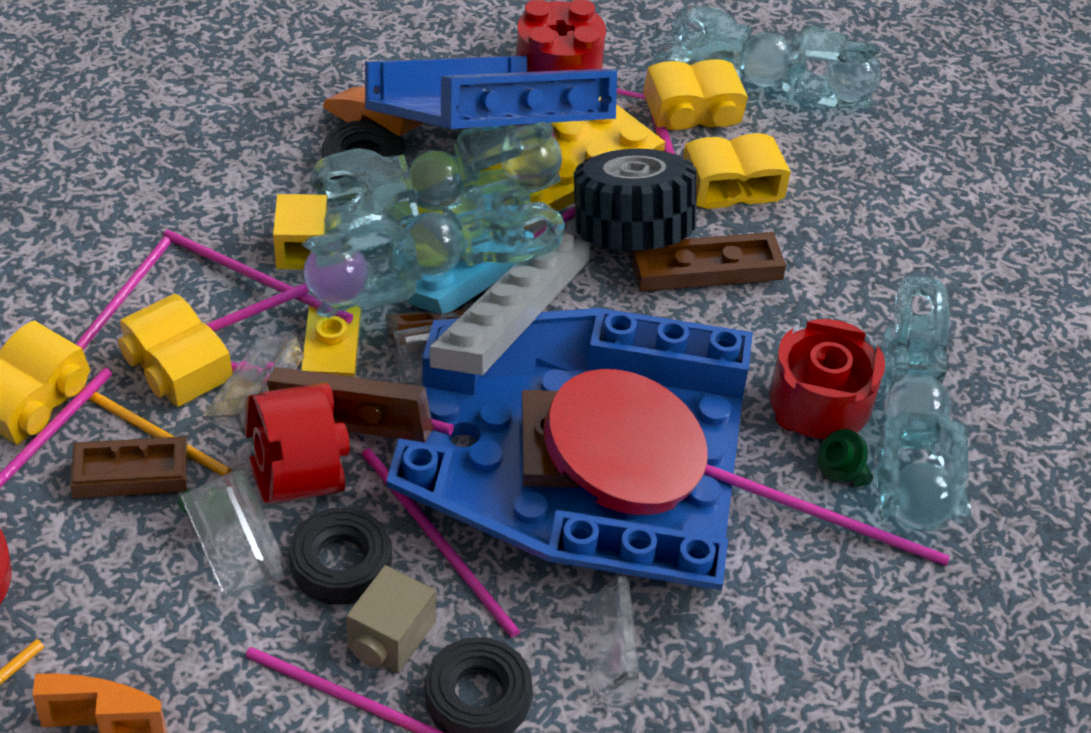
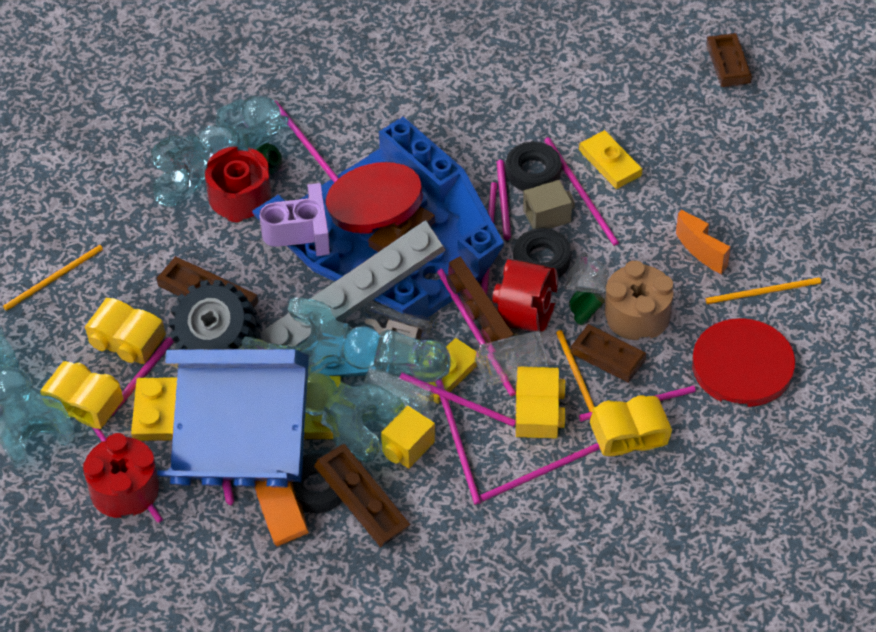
camera: 135 degrees left, 5 degrees up
(131, 543) = (638, 301): none -> medium nougat brick
(289, 143) = (362, 495): none -> reddish brown plate
(473, 613) = (503, 200): none -> dark pink axle
(610, 647) = (467, 141): clear slope -> none
(657, 312) = (297, 222): none -> lavender tile
(891, 200) = (53, 277): none -> light orange axle

